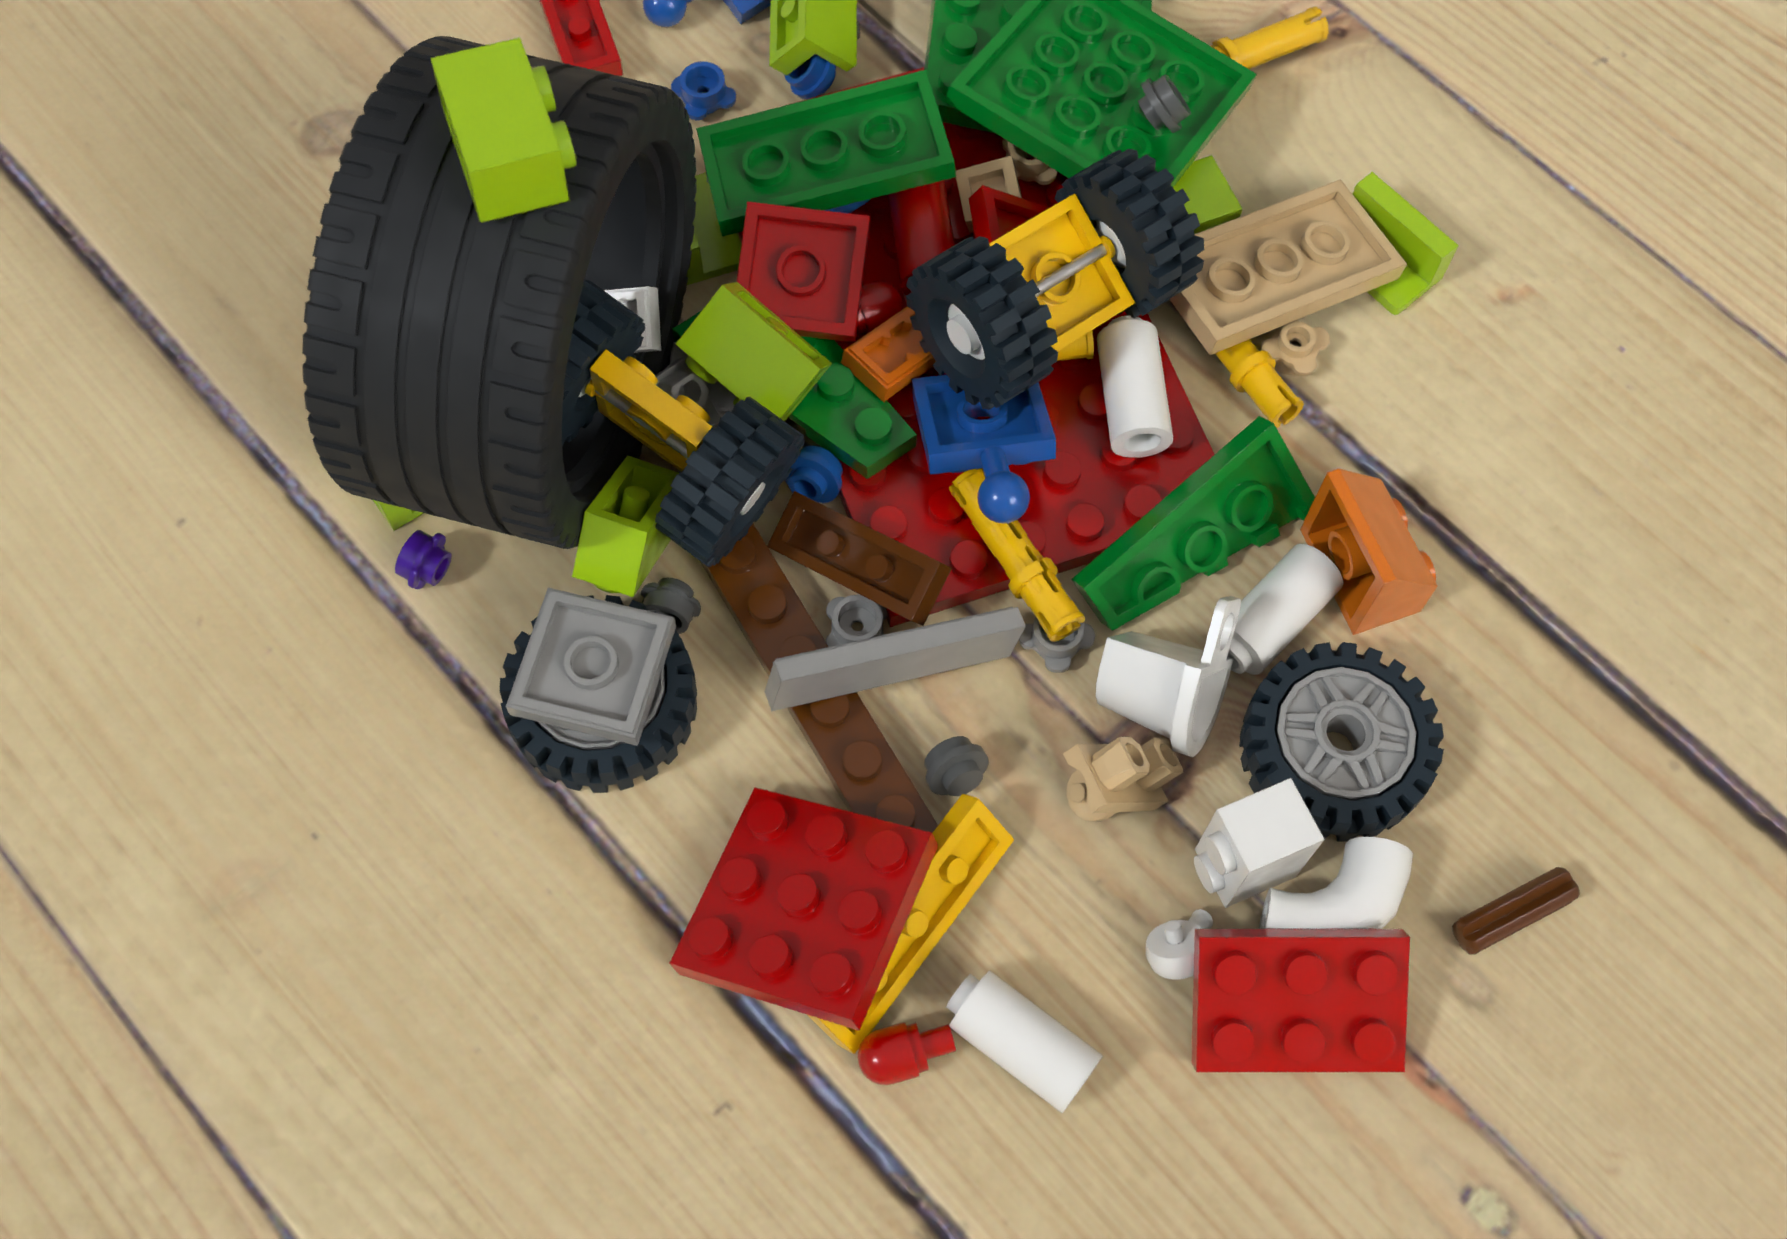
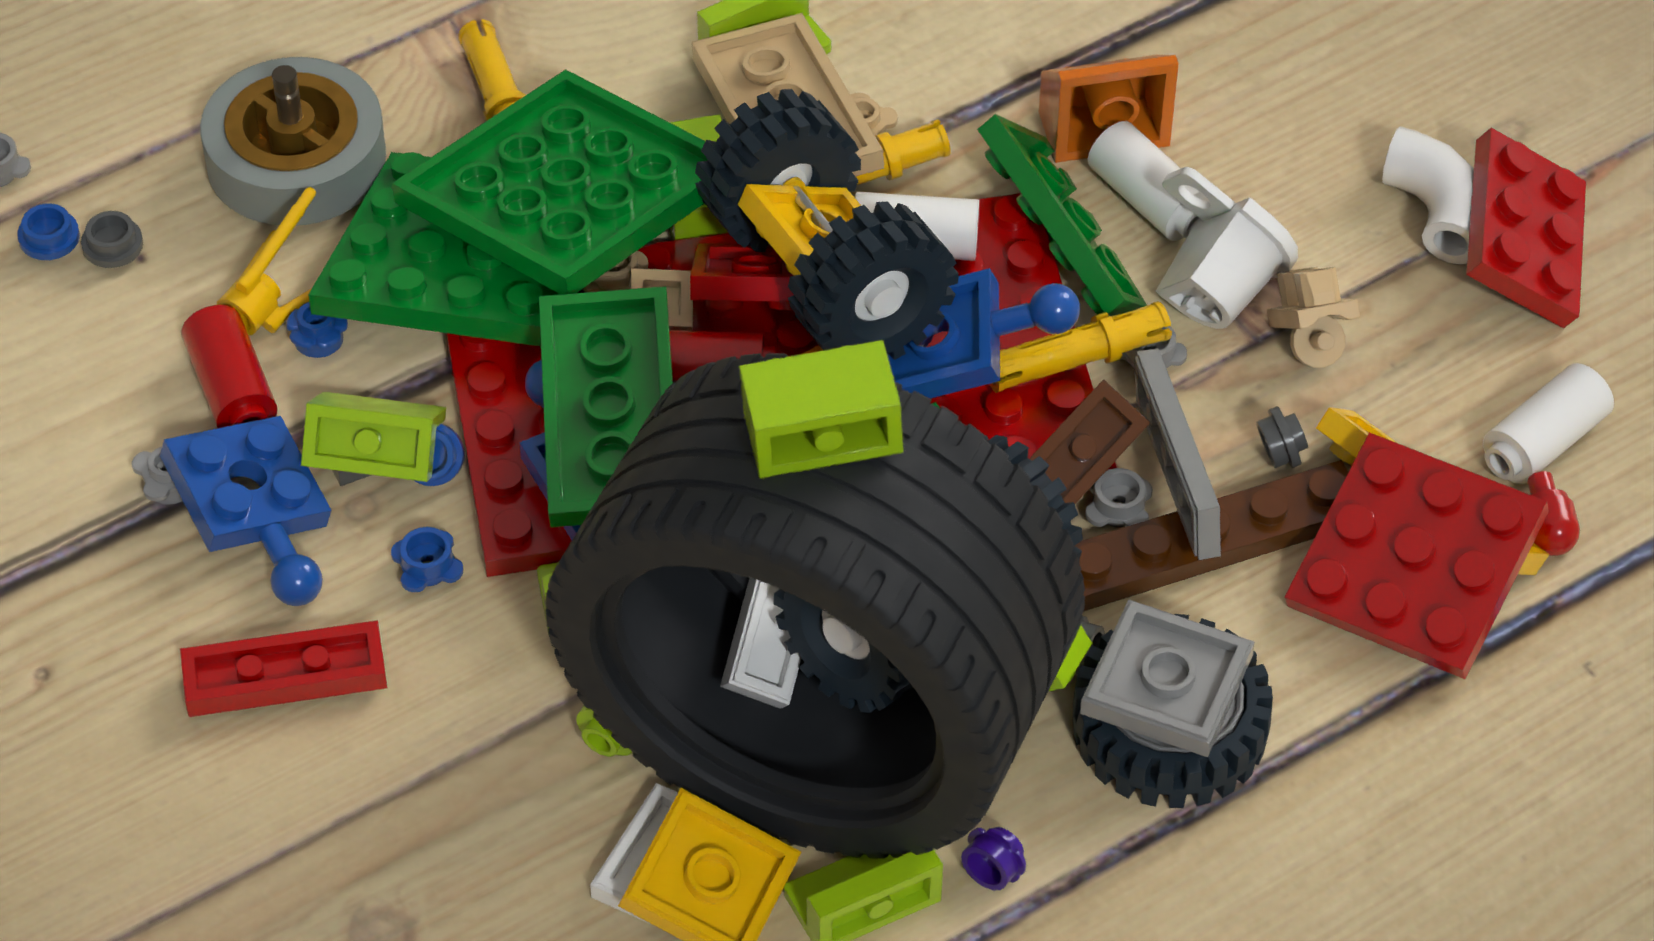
camera: 80 degrees left, 15 degrees down
(1163, 104) = (623, 121): dark grey plate -> none
(1172, 945) = (1467, 307): white piece -> none
(1256, 843) = (1392, 220): white brick -> none
(1368, 704) = (1292, 156): wheel -> none
(1515, 910) = (1448, 85): reddish brown axle -> none

